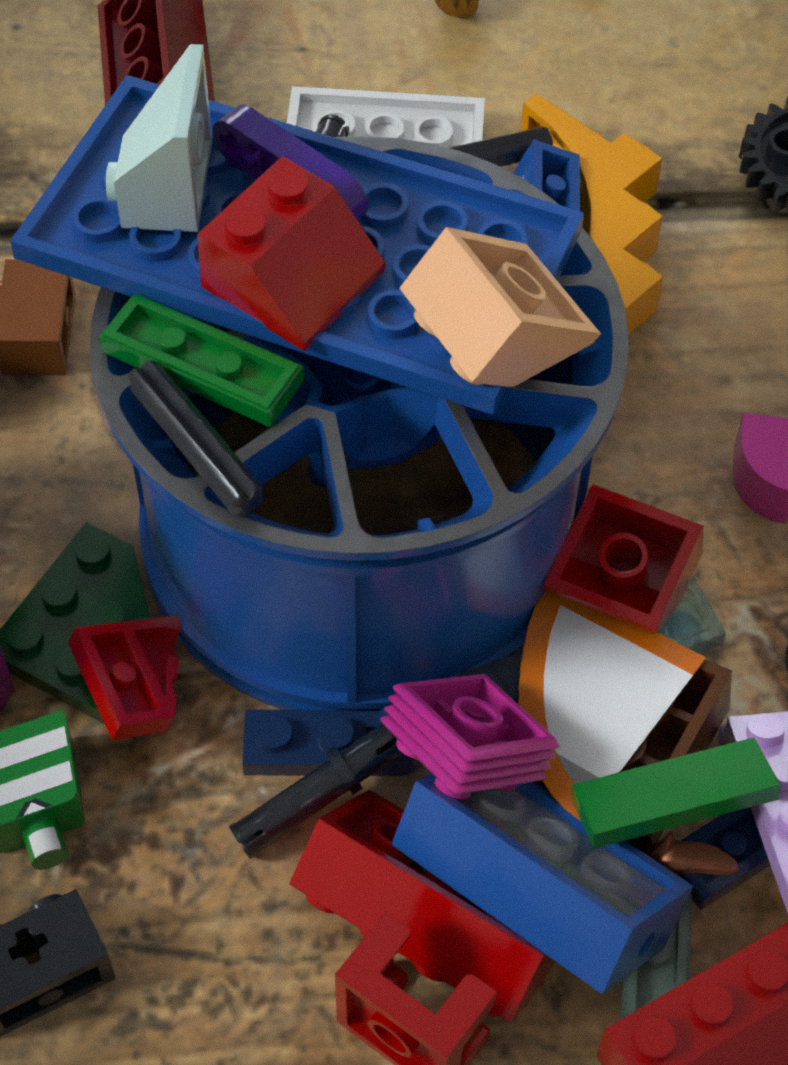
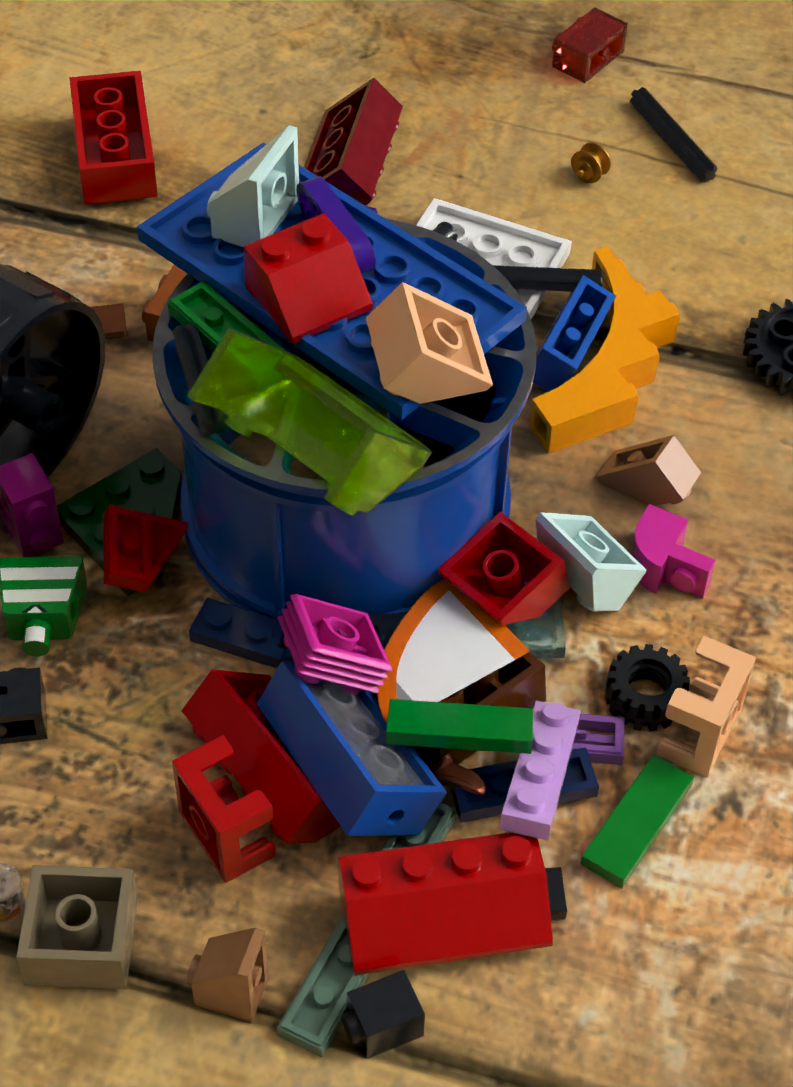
camera: 20 degrees right, 5 degrees down
(316, 790) = (234, 657): black pin -> none
(392, 455) = (311, 419): none -> clear neon green windscreen
(716, 369) = (651, 472): none -> medium nougat slope
(729, 509) = (594, 561): none -> light aqua slope

